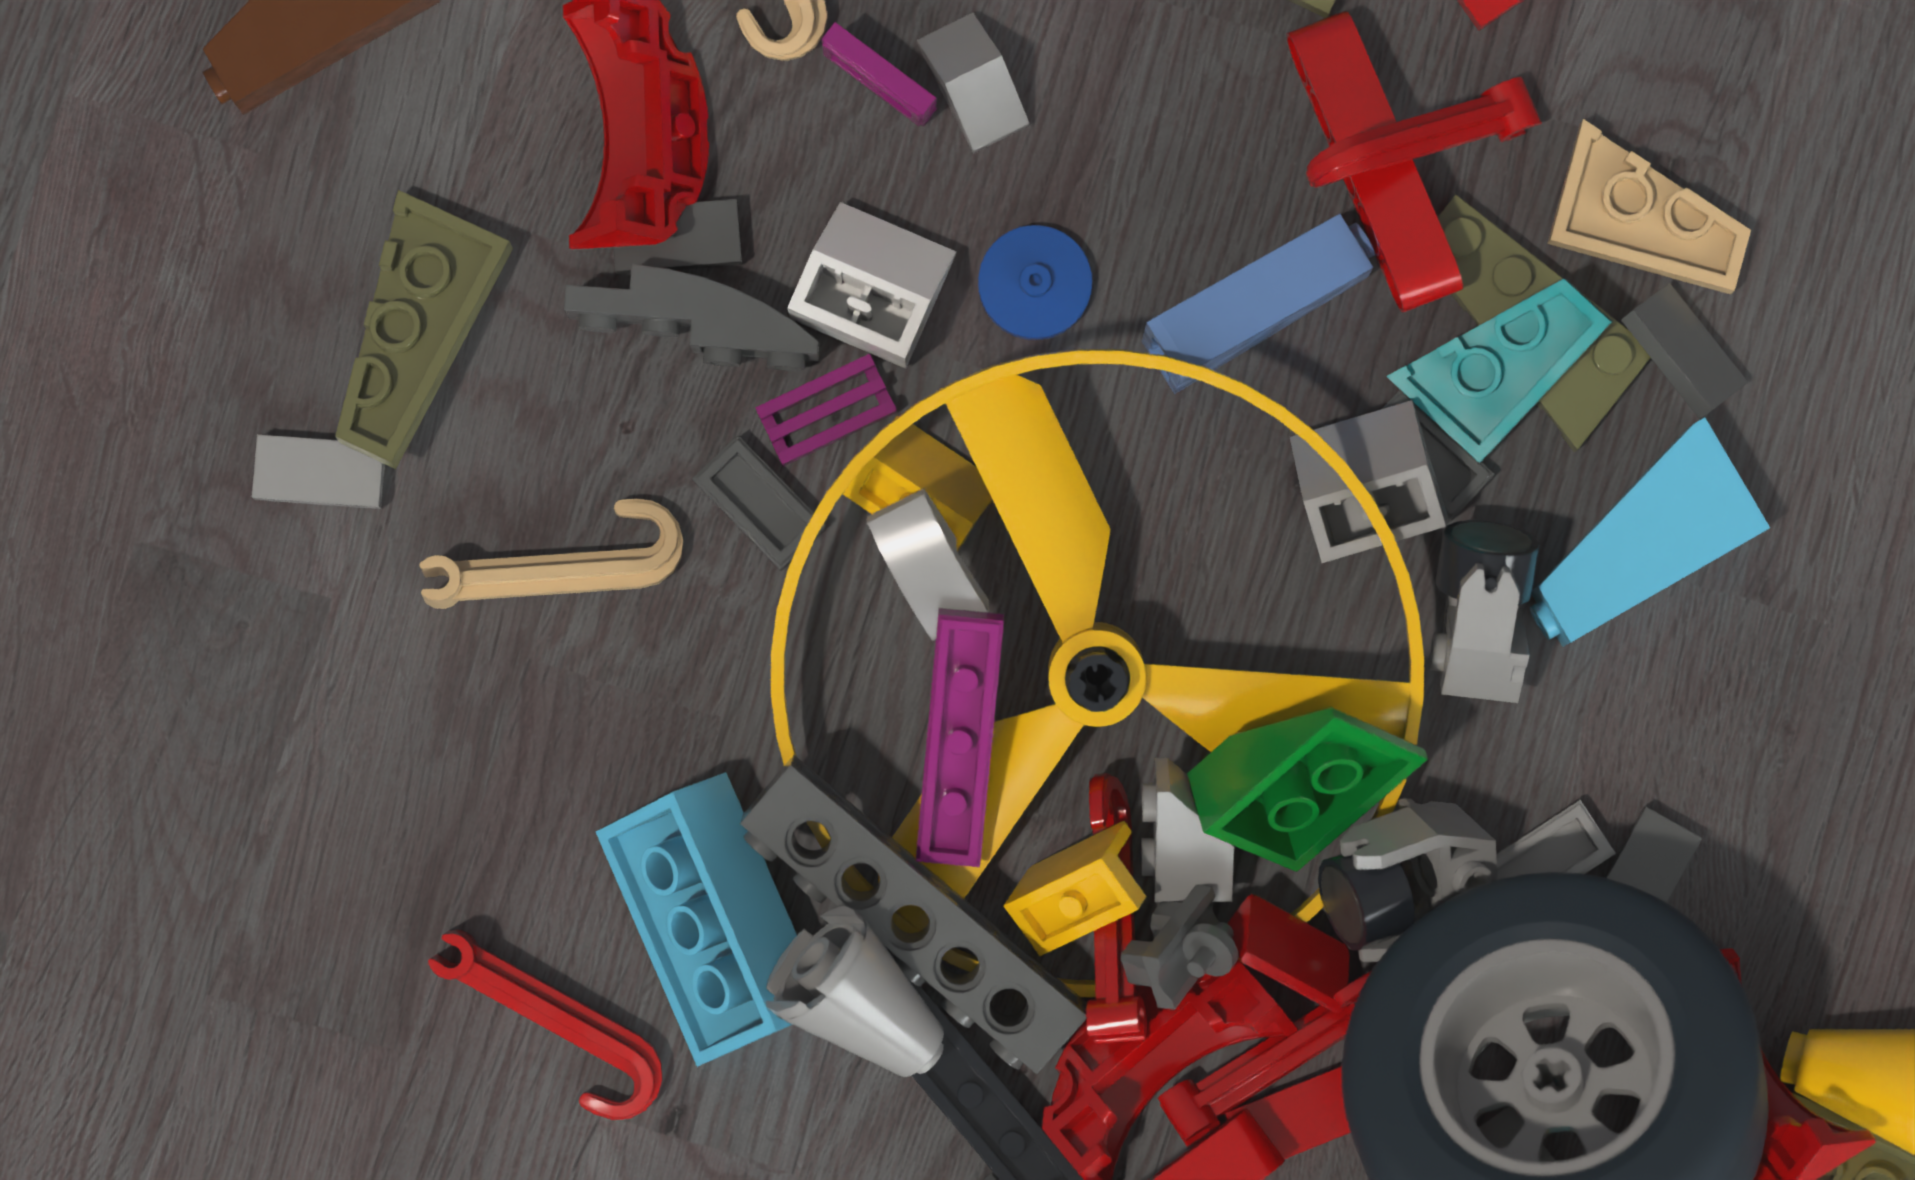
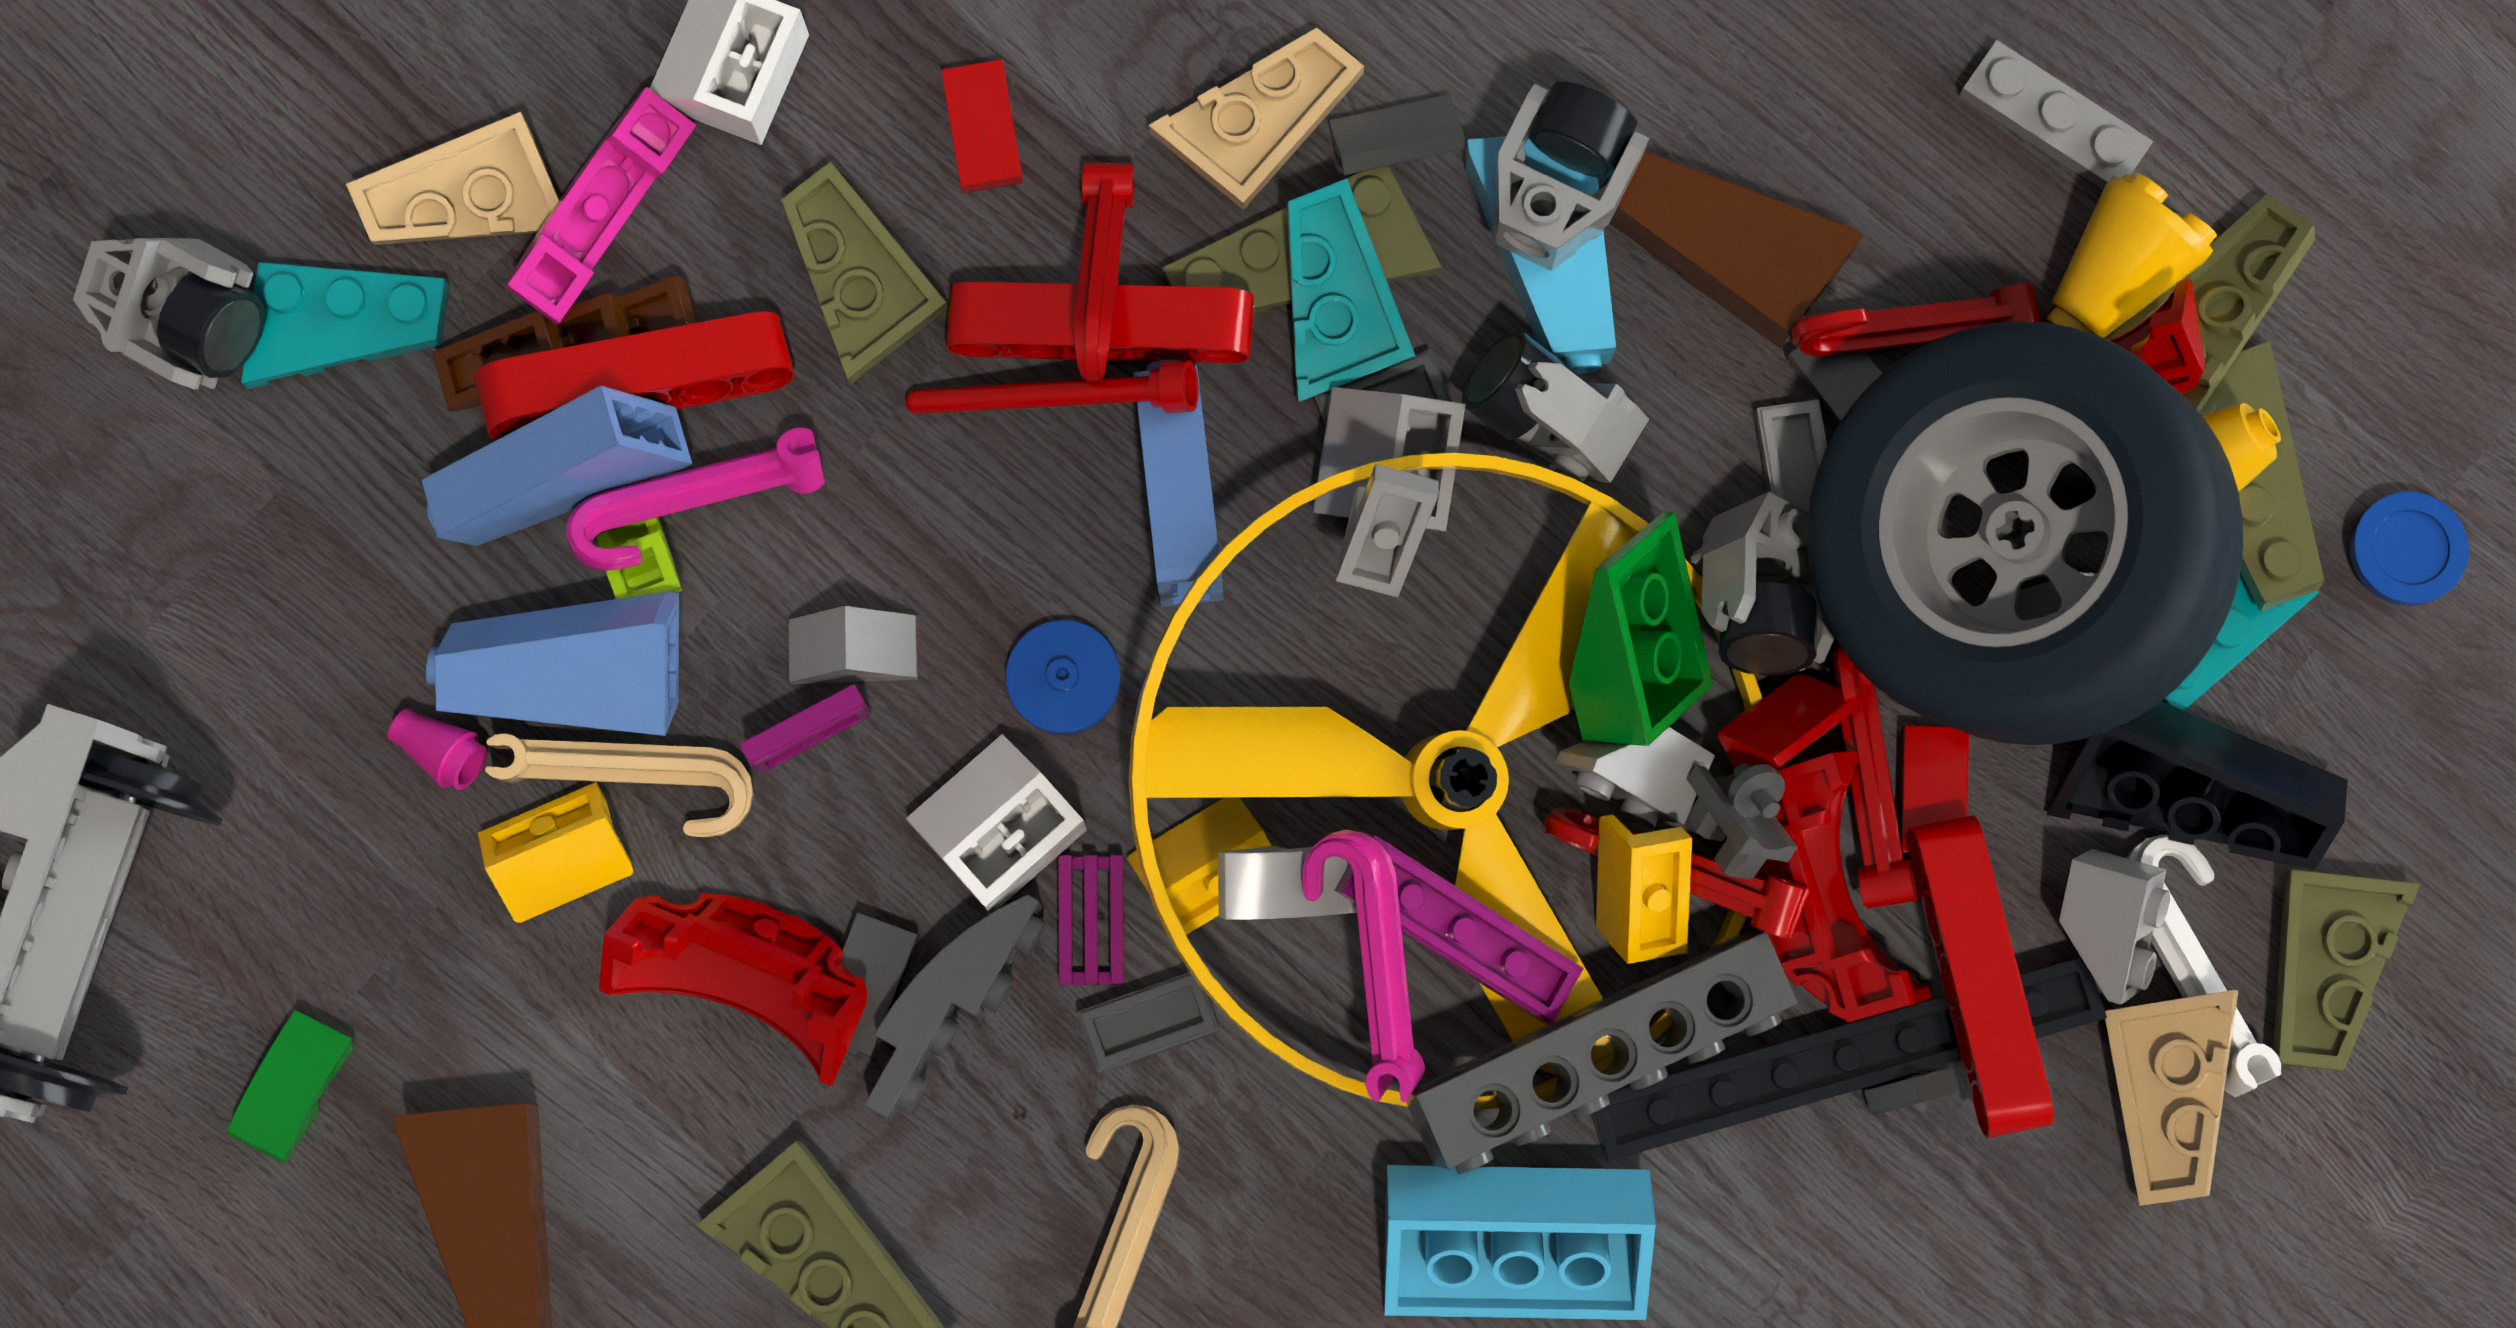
camera: 65 degrees left, 5 degrees down
(855, 996) = (1652, 1137): light grey cone -> none
(897, 677) = (1381, 955): none -> dark pink piece
(1285, 504) = (1385, 529): none -> light grey slope
(1336, 251) = (1170, 387): none -> red piece
(1726, 711) = (1734, 243): none -> reddish brown slope
(1753, 520) = (1581, 133): none -> light grey piece
(1779, 994) = (1910, 326): none -> red piece

